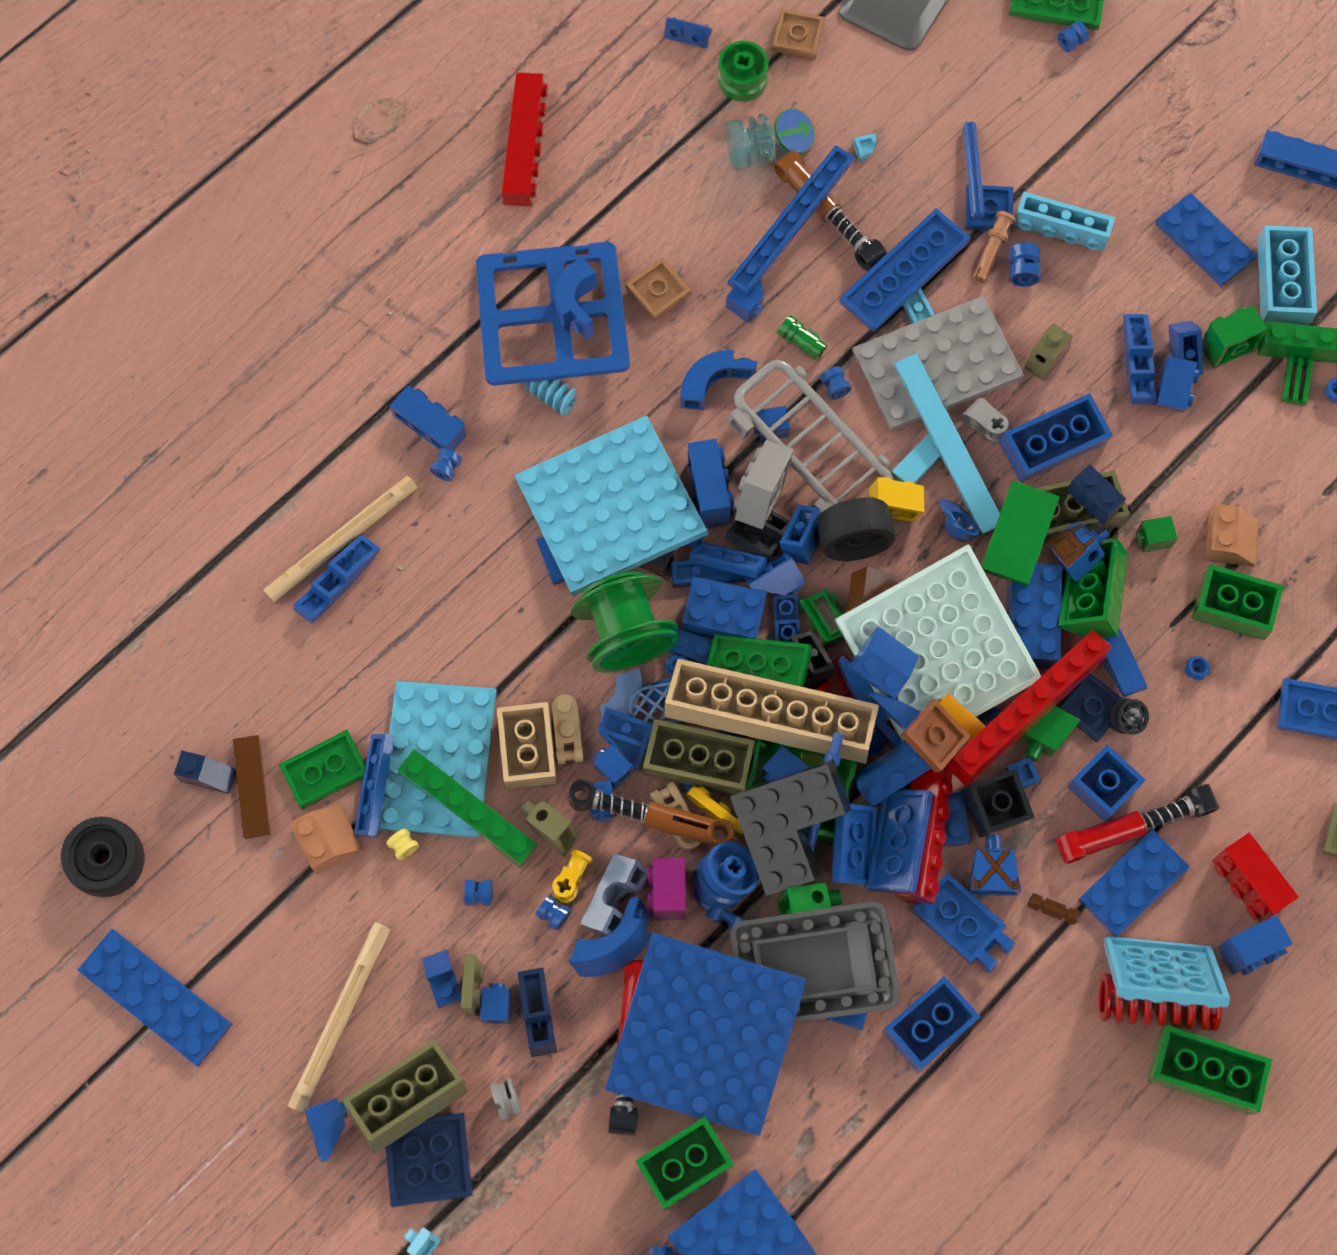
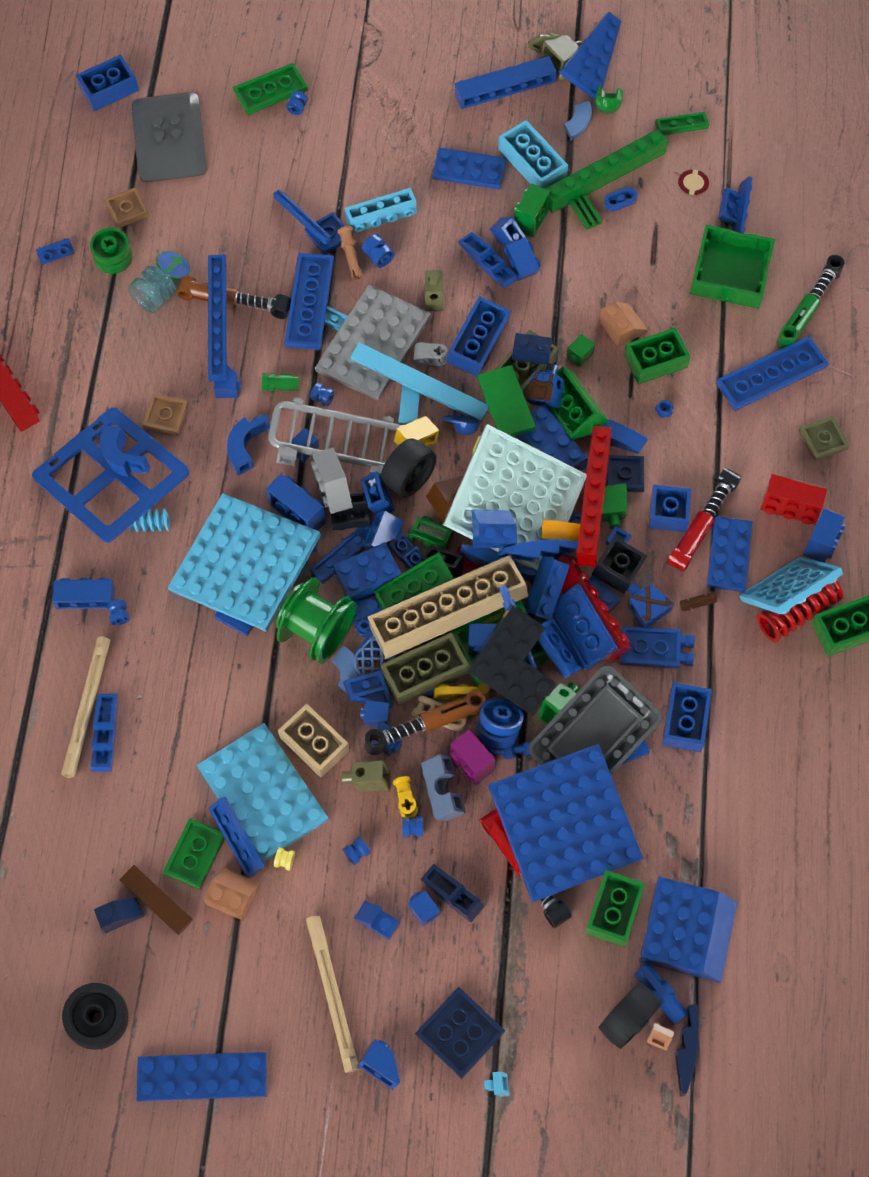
camera: 40 degrees left, 5 degrees down
(404, 1096) = (416, 1004): olive brick -> none
(467, 807) = (342, 804): green arch -> none
(472, 975) = (404, 911): olive plate -> none
(505, 1104) = (477, 957): light grey wheel -> none
(567, 729) = (329, 713): tan plate -> none
(616, 949) = (470, 816): blue arch -> none
(728, 559) = (344, 541): blue tile -> none
(864, 146) = (223, 246): medium azure tile -> none
(935, 735) = (557, 547): dark orange plate -> none
(1128, 715) = (649, 462): black wheel -> none

